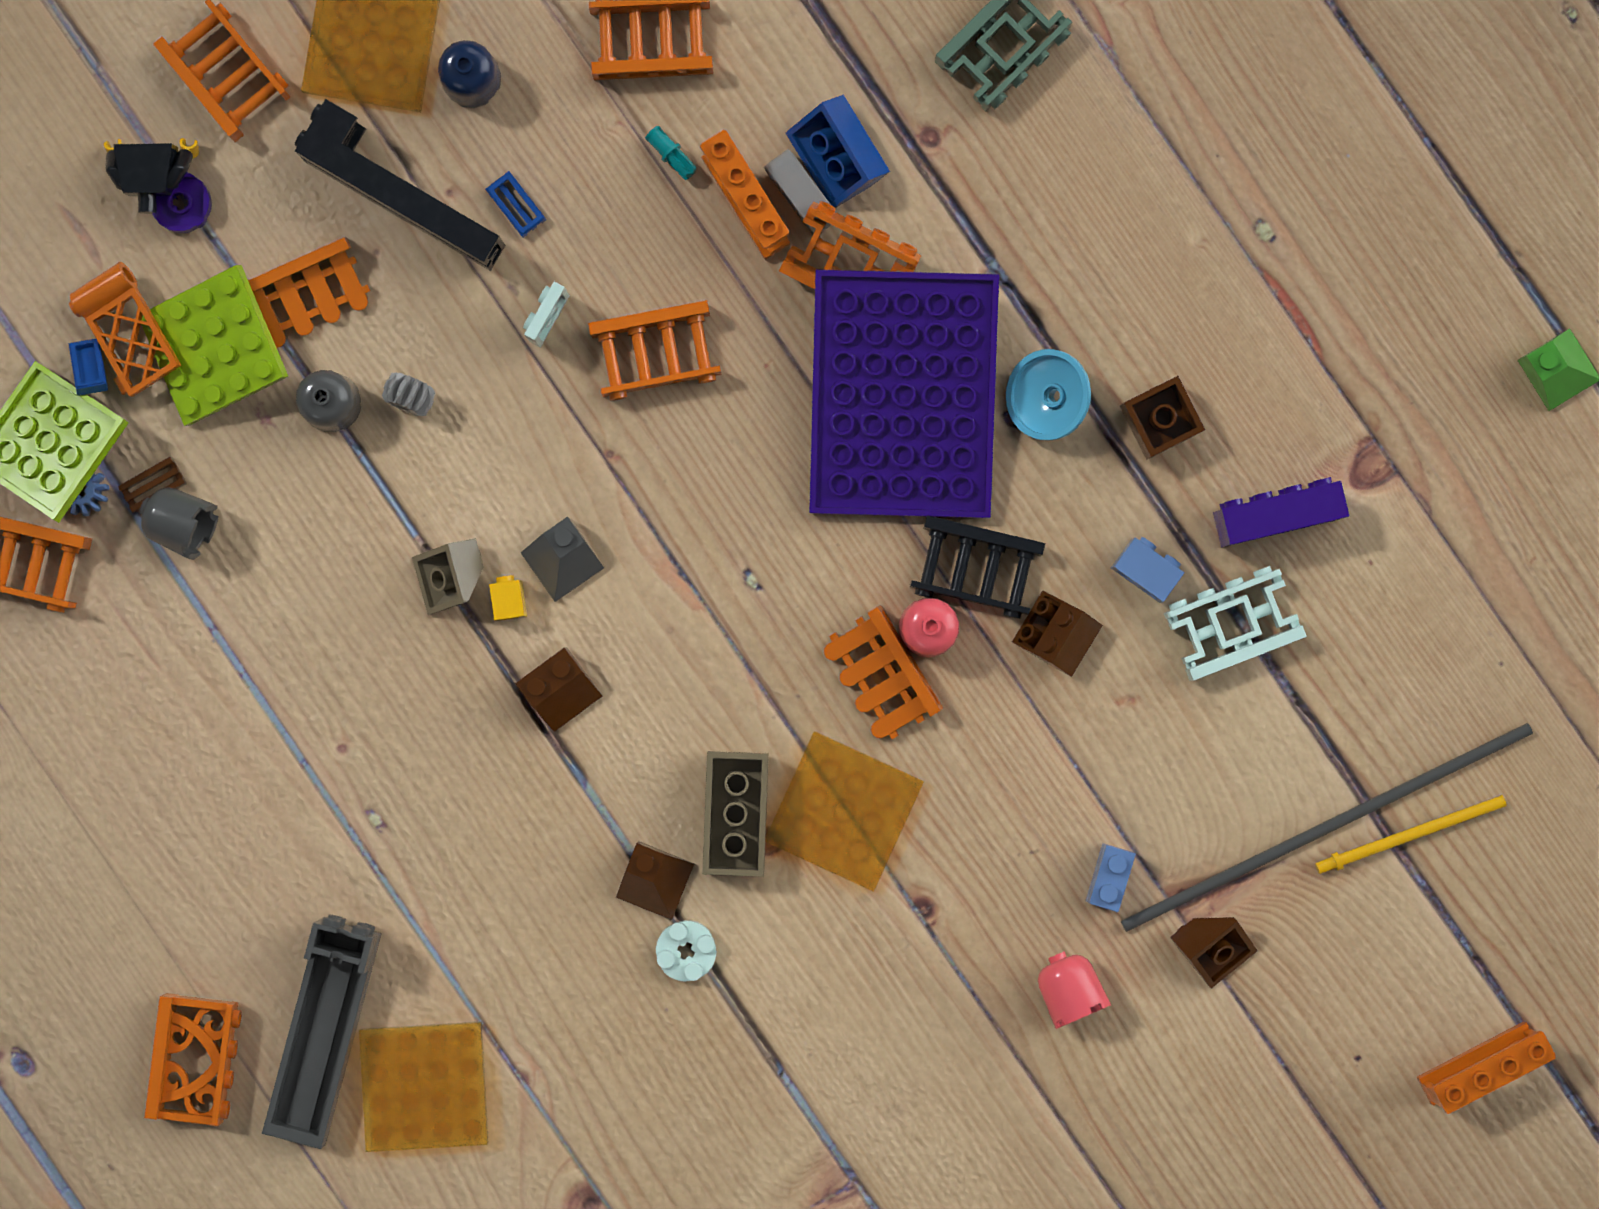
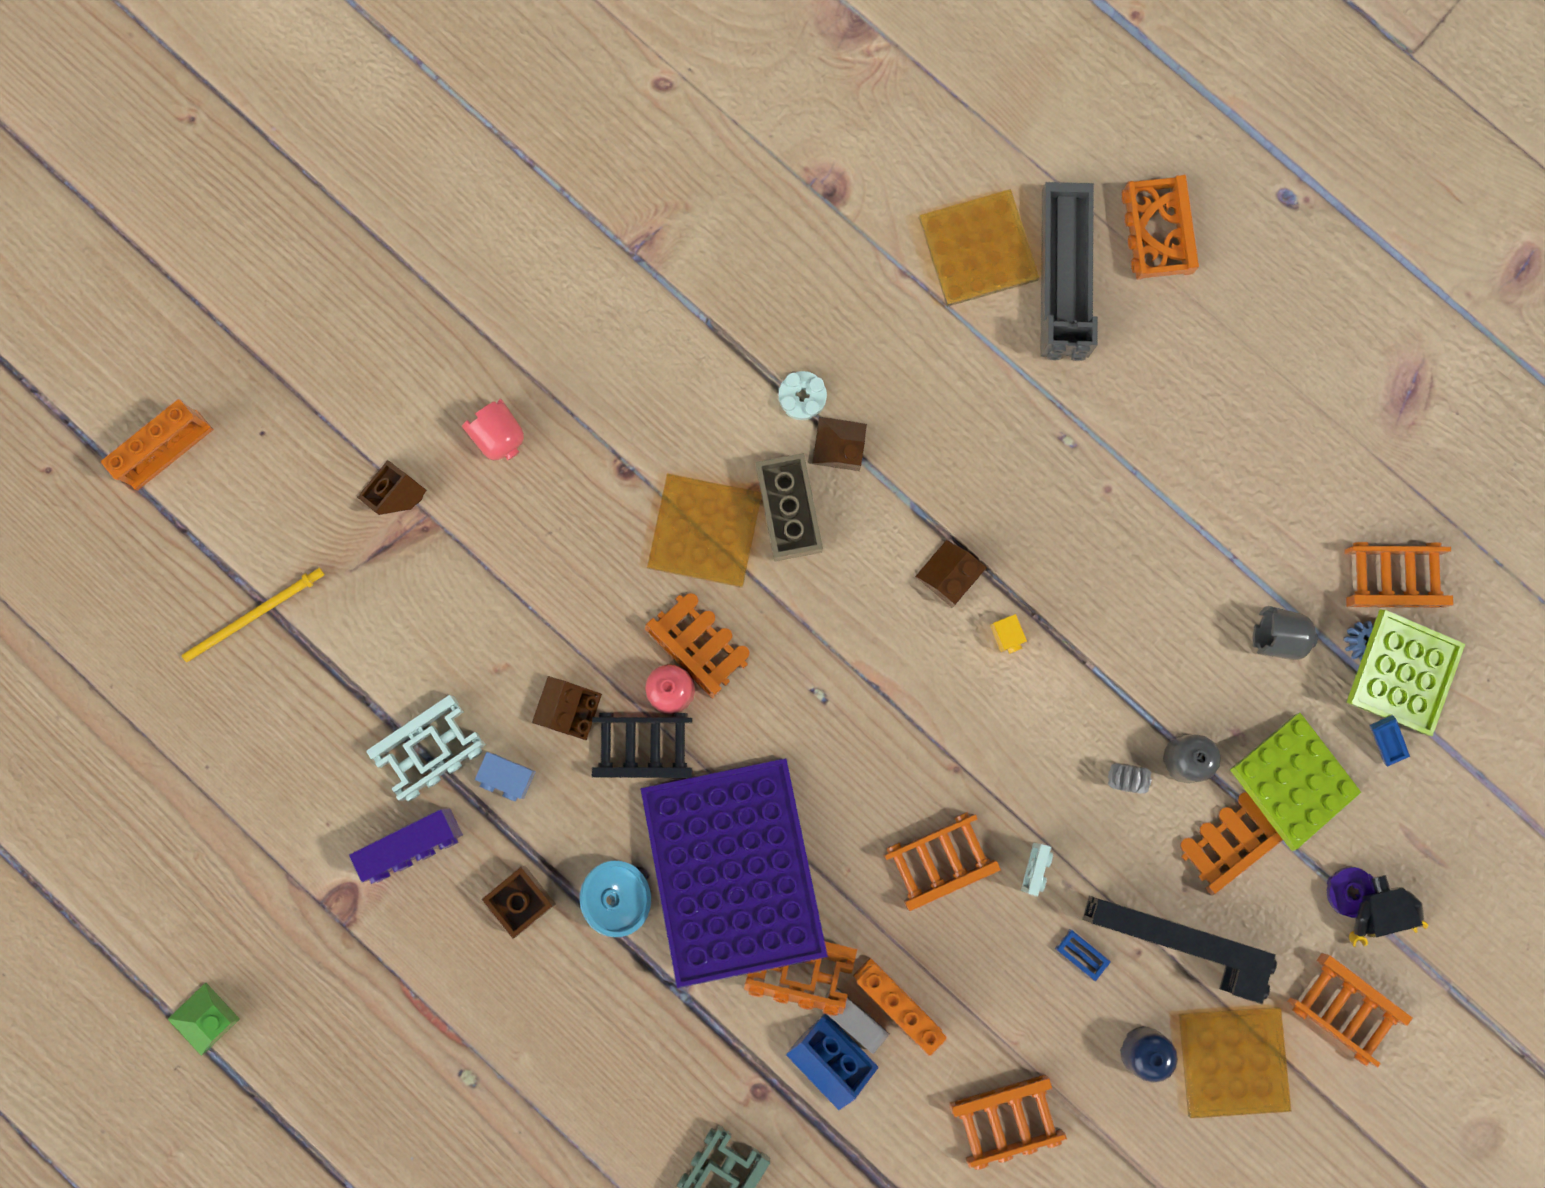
camera: 165 degrees right, 5 degrees down
(103, 296) = (1390, 803): orange piece -> none
(129, 497) = (1326, 645): reddish brown tile -> none
(448, 574) = (1060, 642): dark tan slope -> none
(562, 559) = (973, 676): dark grey slope -> none
(671, 152) = (967, 1028): teal axle -> none
(1110, 877) = (483, 525): medium blue brick -> none
(1326, 827) = (319, 606): dark grey piece -> none

